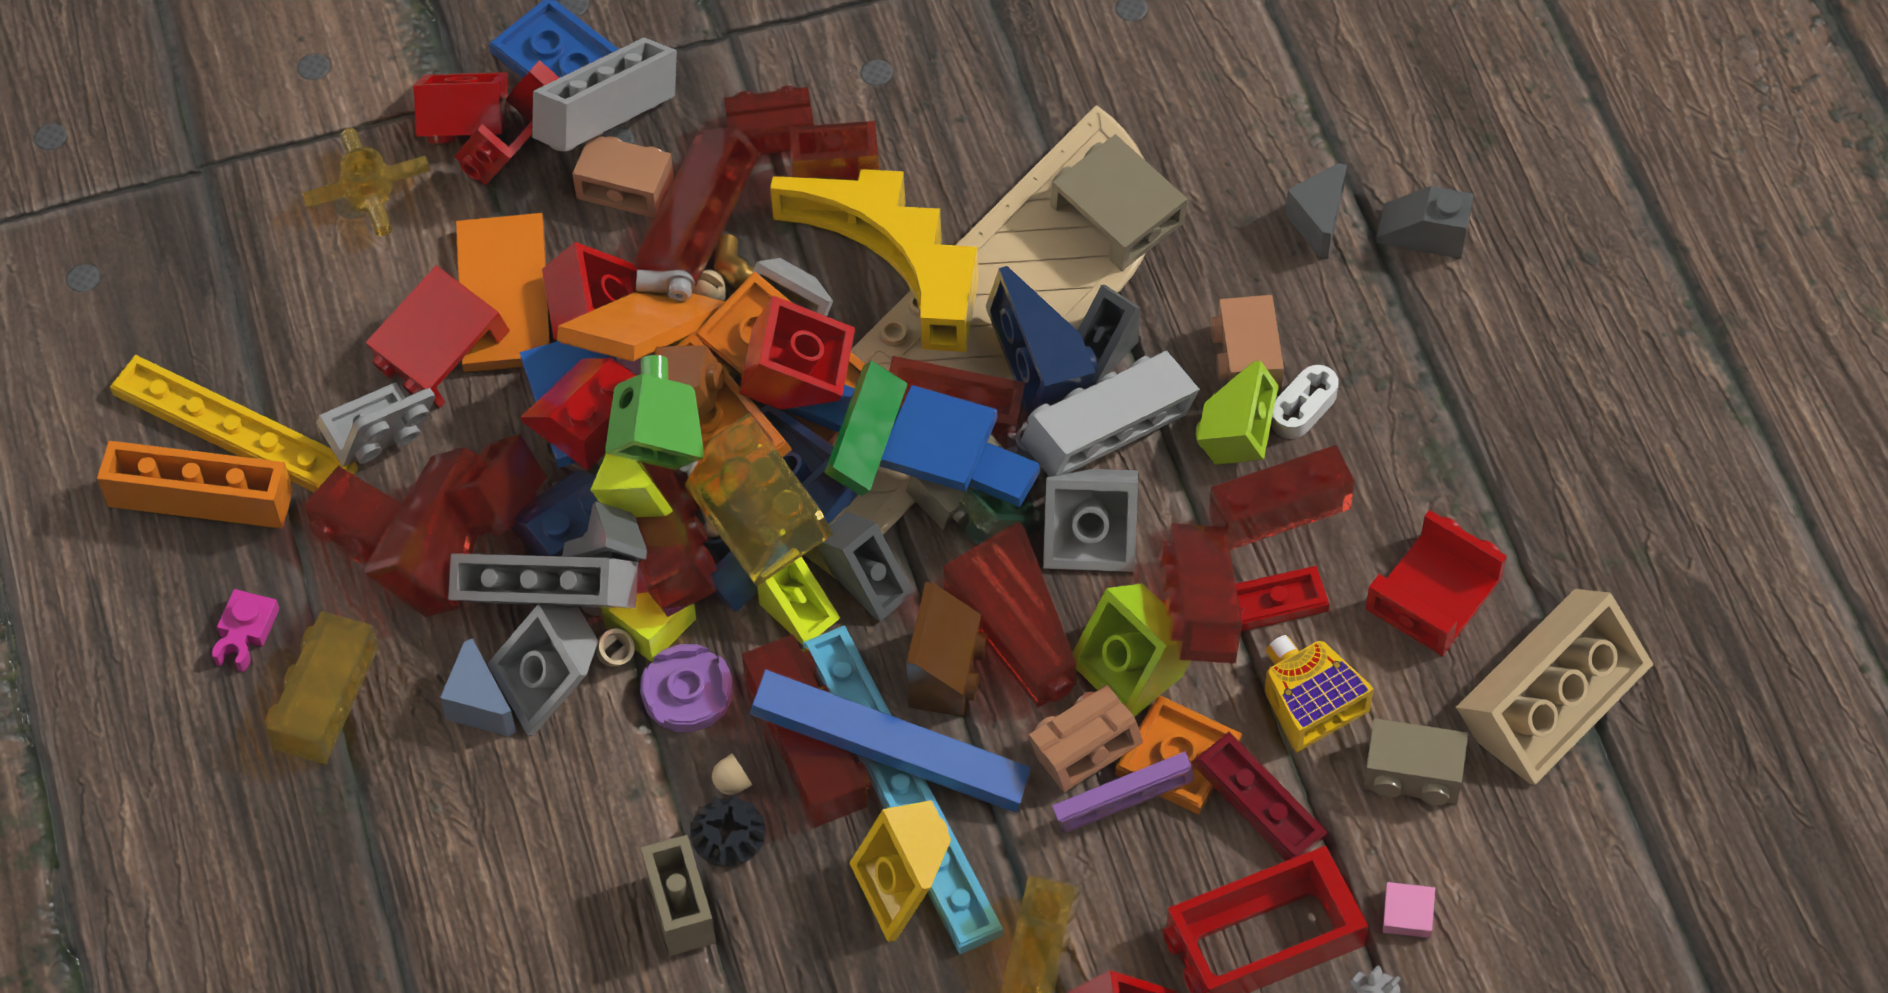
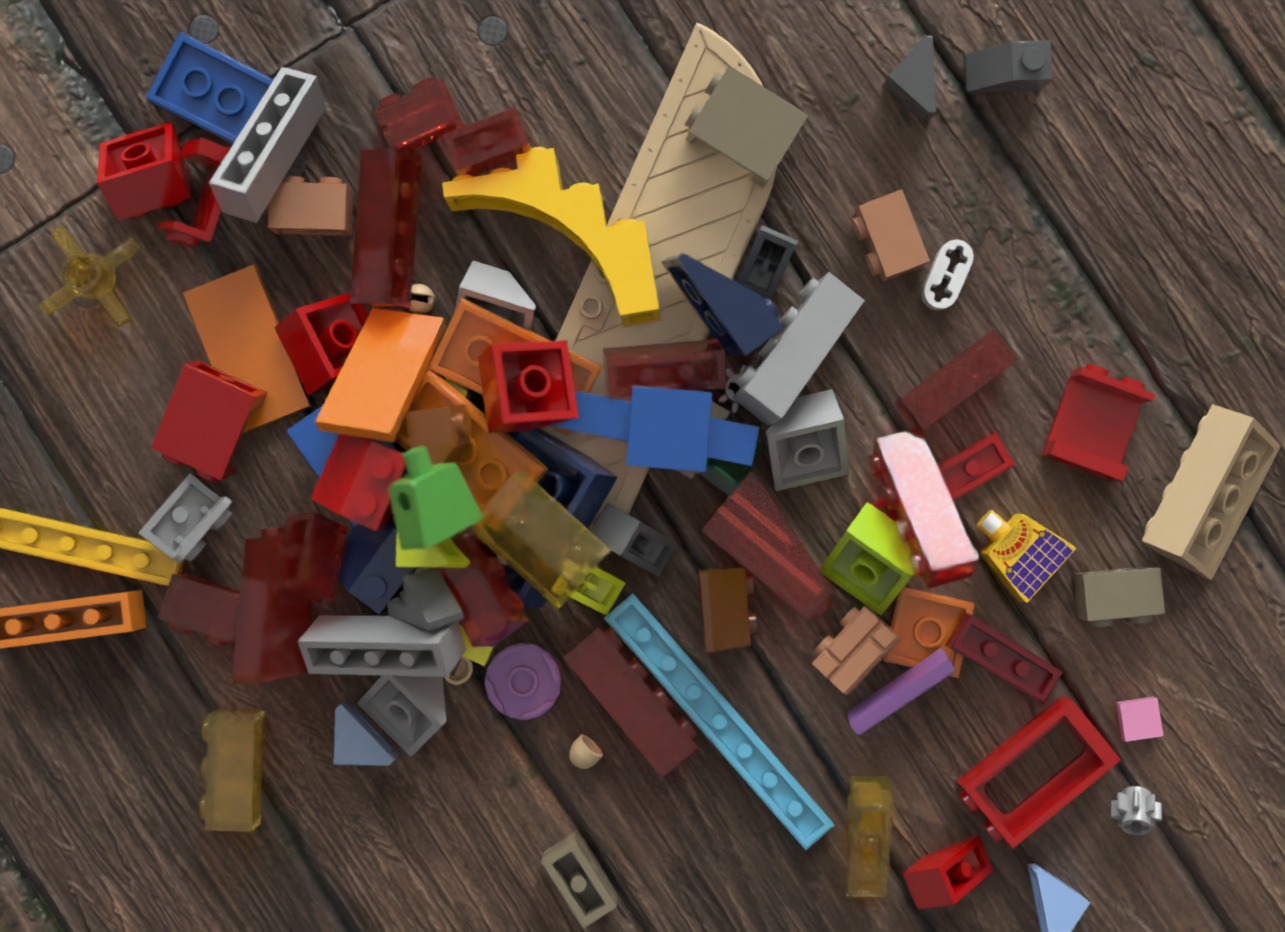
camera: 15 degrees left, 30 degrees up
(243, 623) = (149, 720): dark pink plate -> none
(675, 283) = (386, 315): light grey arm -> none
(728, 264) = (430, 273): pearl gold arm -> none
(740, 845) = (608, 785): black gear -> none
(866, 428) = (608, 443): green tile -> none
(890, 741) = (703, 702): tile -> none
(900, 862) = (749, 805): yellow slope -> none
(1239, 417) = (902, 315): lime slope -> none

